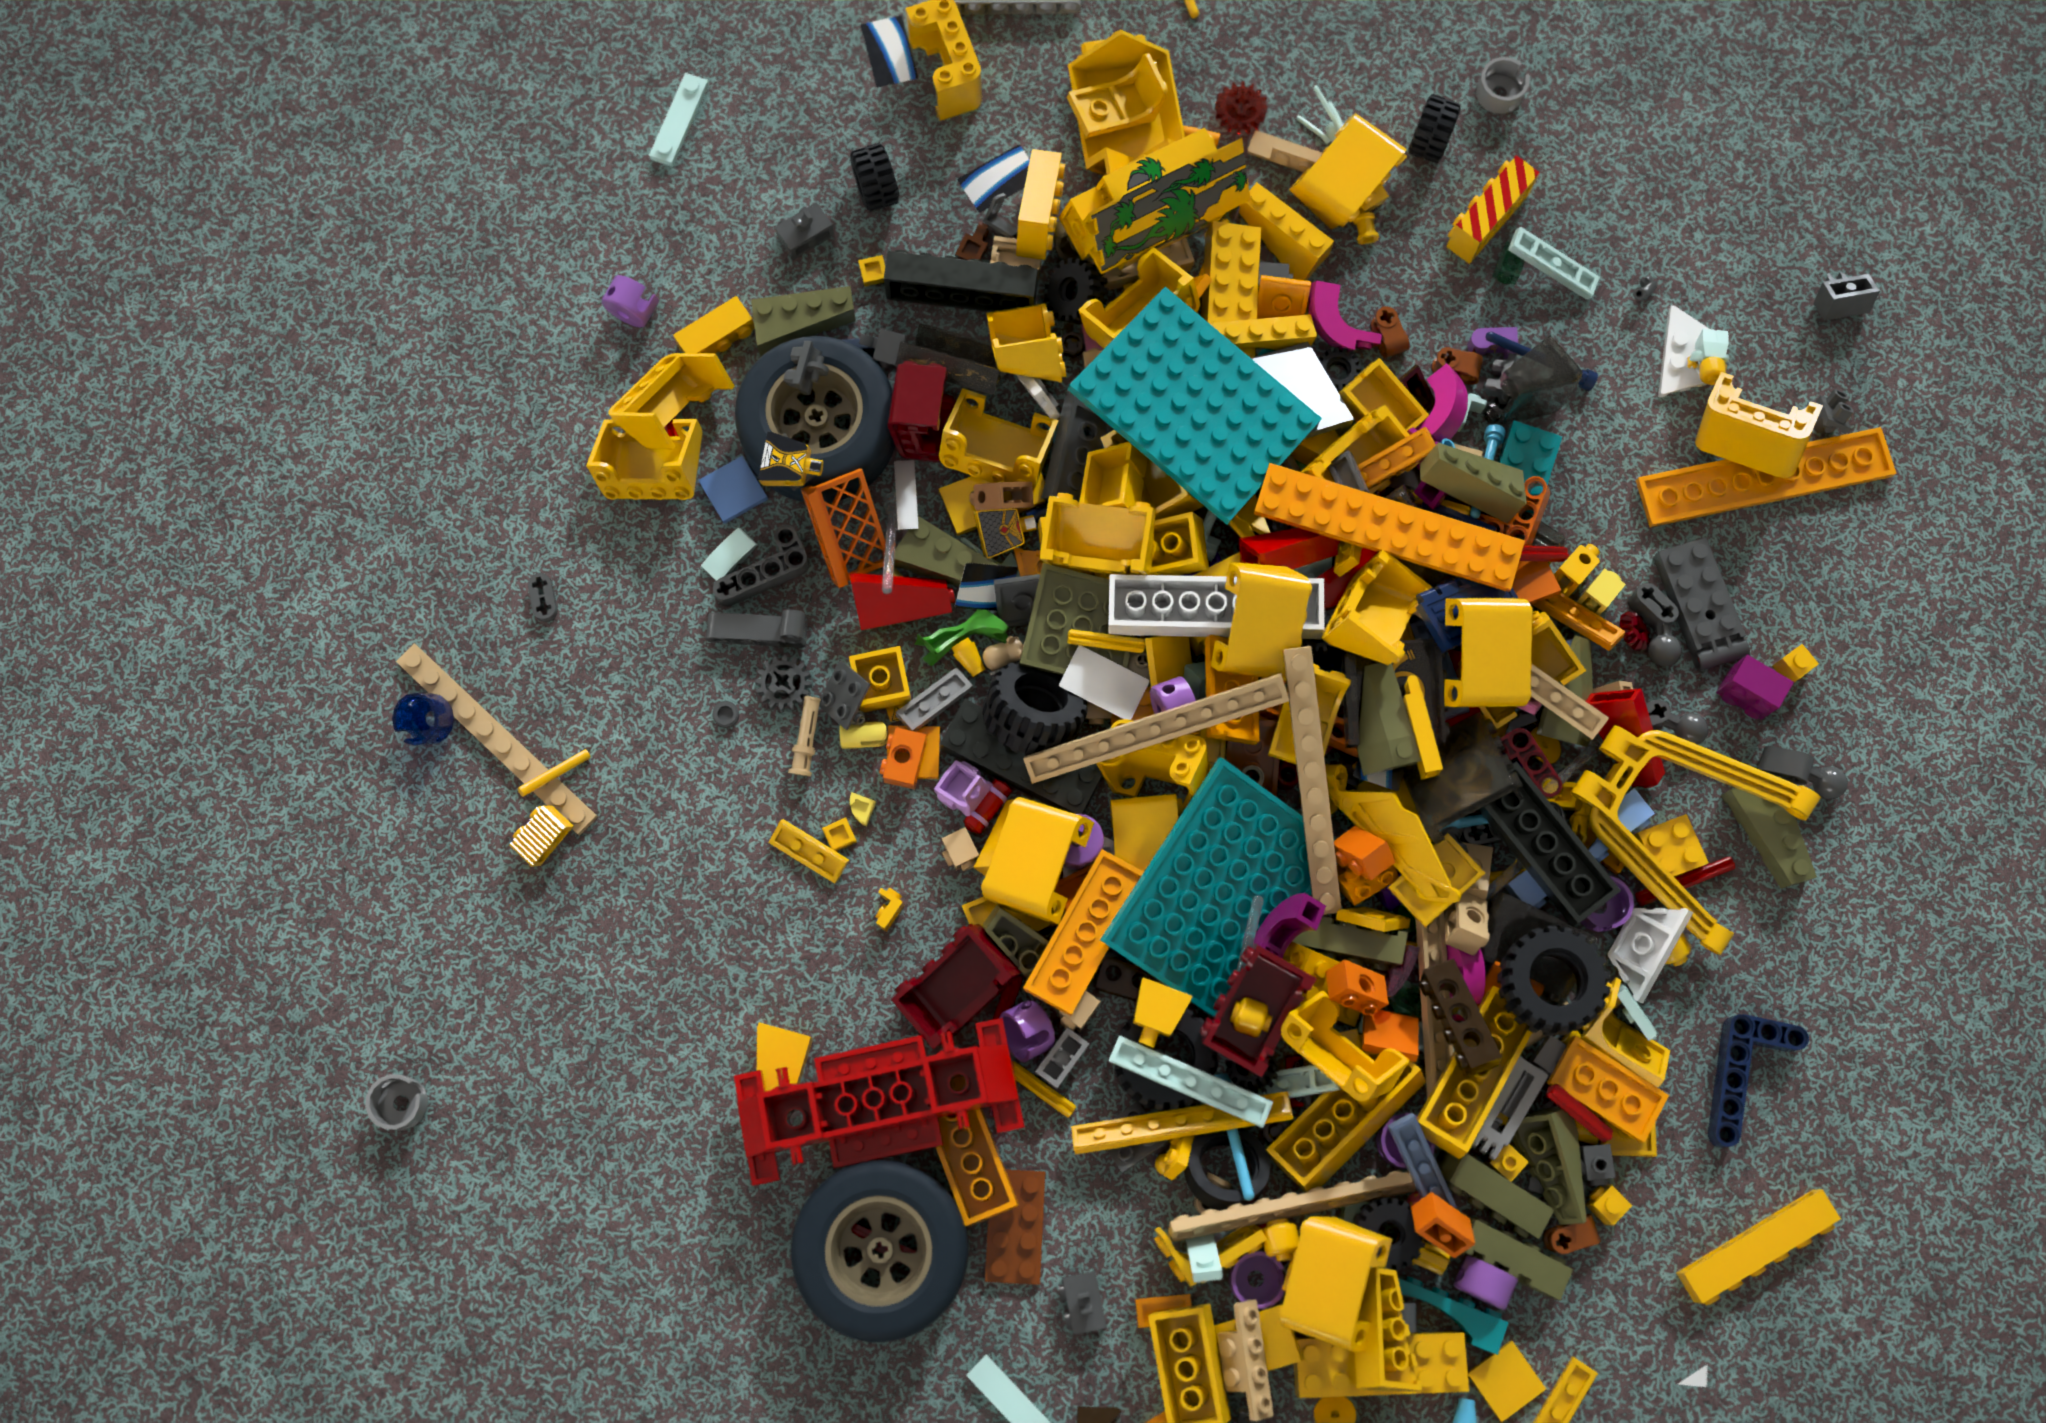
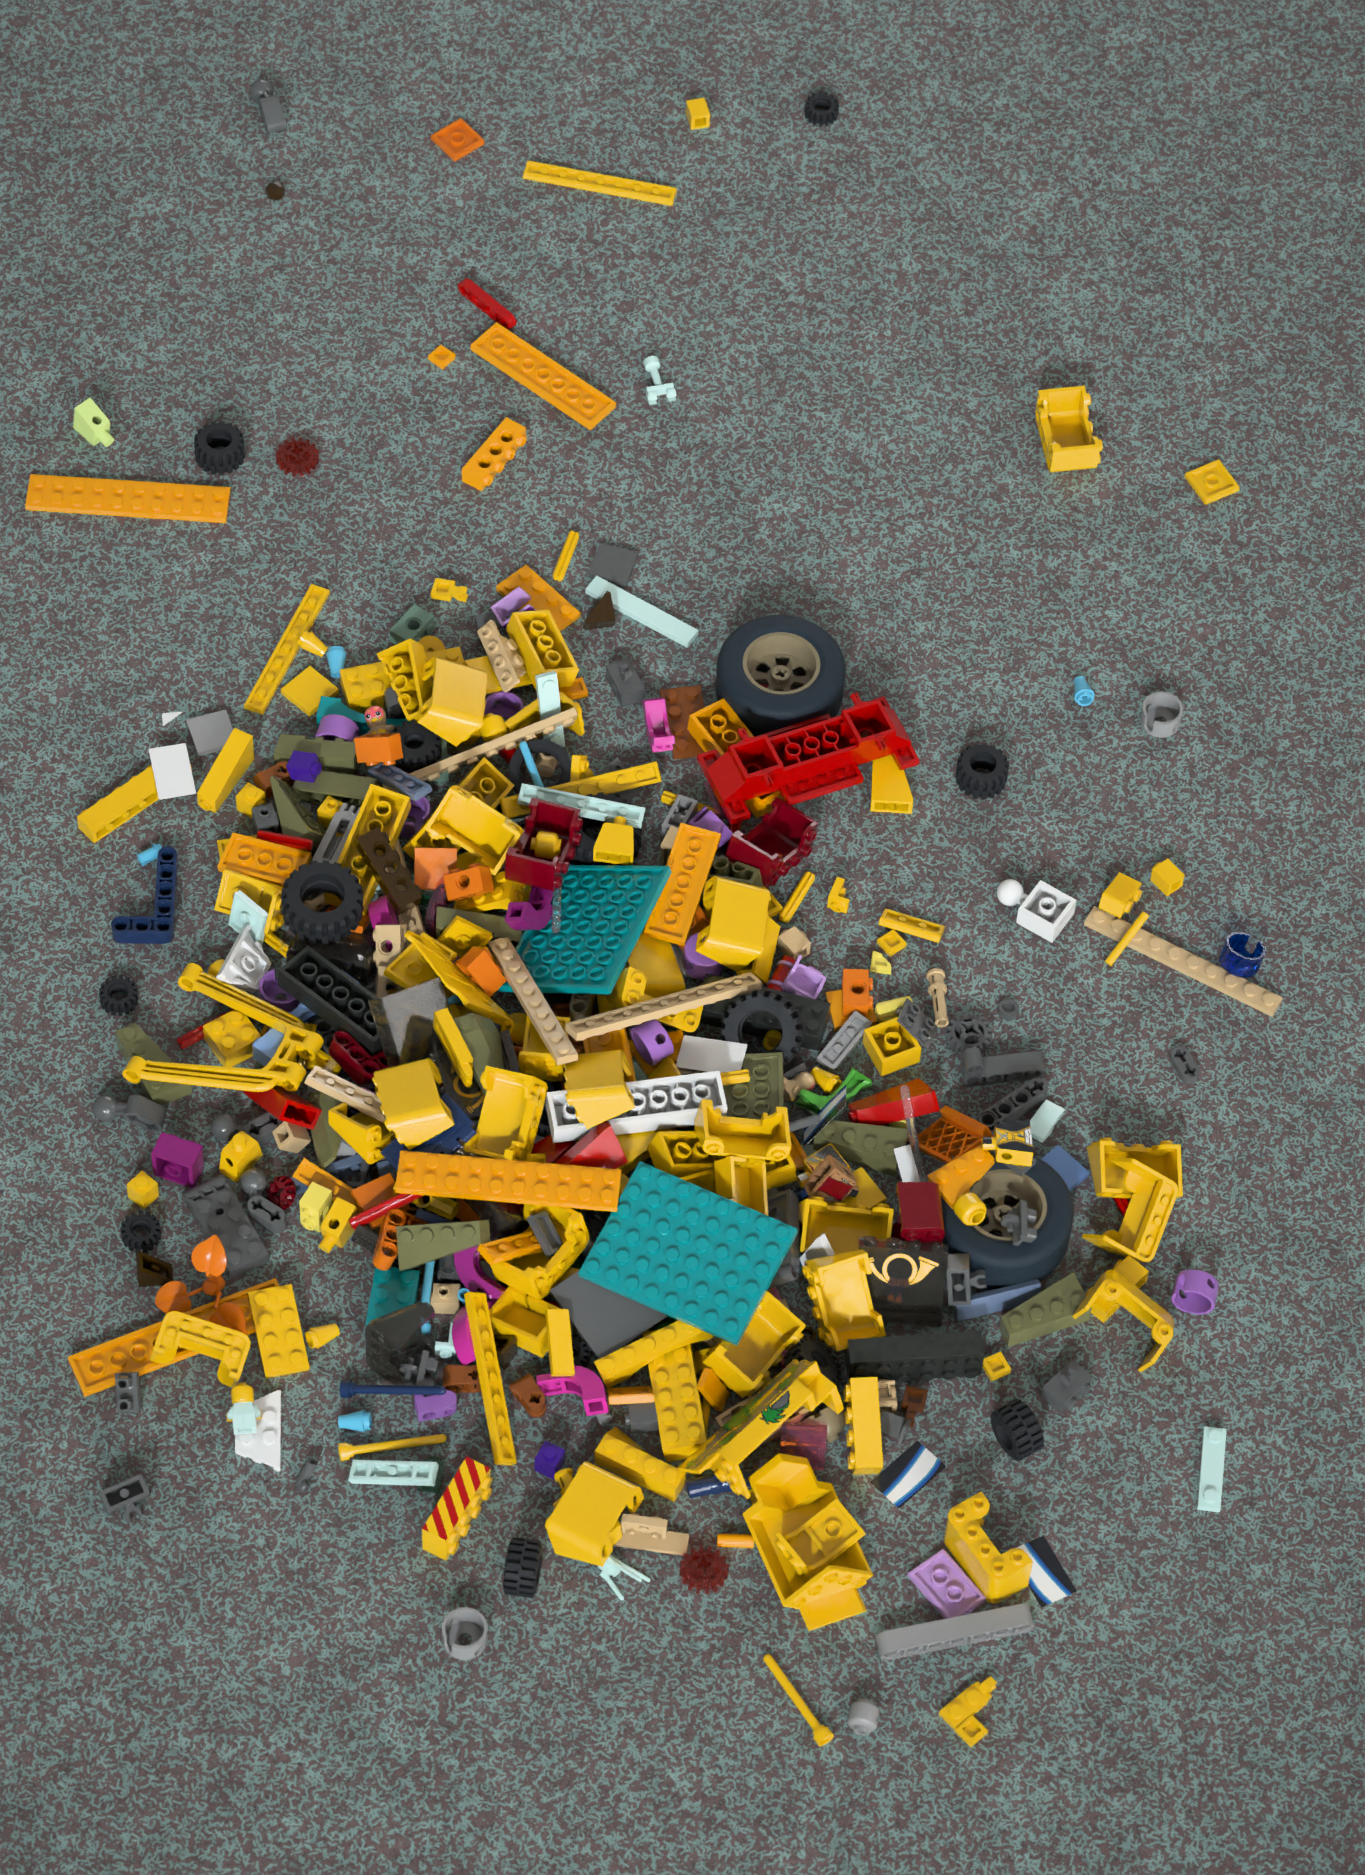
camera: 165 degrees right, 20 degrees down
(474, 855) = (1167, 877): none -> yellow brick
(485, 1166) = (1082, 692): none -> medium azure cone
(621, 827) = (1043, 911): none -> white brick
(634, 1050) = (982, 784): none -> black tyre
(718, 300) = (1115, 1287): none -> yellow windscreen
(856, 448) = (961, 1174): none -> light orange wing
(858, 395) = (970, 1209): none -> yellow head
(938, 923) = (796, 897): none -> yellow axle
(996, 50) = (946, 1586): none -> lavender tile
(1057, 1215) = (657, 725): none -> dark pink arch
(1354, 353) = (559, 1342): none -> yellow tile
(1380, 252) = (549, 1459): none -> dark purple brick
(1433, 346) = (490, 1378): none -> yellow tile
(1433, 1288) = (376, 721): none -> animal
(1540, 1228) = (304, 766): none -> dark purple brick
(1580, 340) = (356, 1421): none -> medium azure cone
(1595, 310) = (348, 1451): none -> yellow piece
(1608, 448) = (320, 1335): none -> yellow cone
(1637, 1255) = (226, 771): none -> yellow slope
(1645, 1335) = (209, 732): none -> light grey tile
(1657, 457) = (278, 1331): none -> yellow plate
(1678, 684) = (241, 1153): none -> yellow torso
(1710, 1267) = (172, 771): none -> white sticker
(1737, 518) = (209, 1258): none -> orange plant
(1744, 1150) = (149, 854): none -> medium azure pin
(1792, 561) = (152, 1270): none -> dark brown slope
(1814, 612) = (141, 1221): none -> black tyre
(1816, 939) = (118, 1005): none -> black tyre

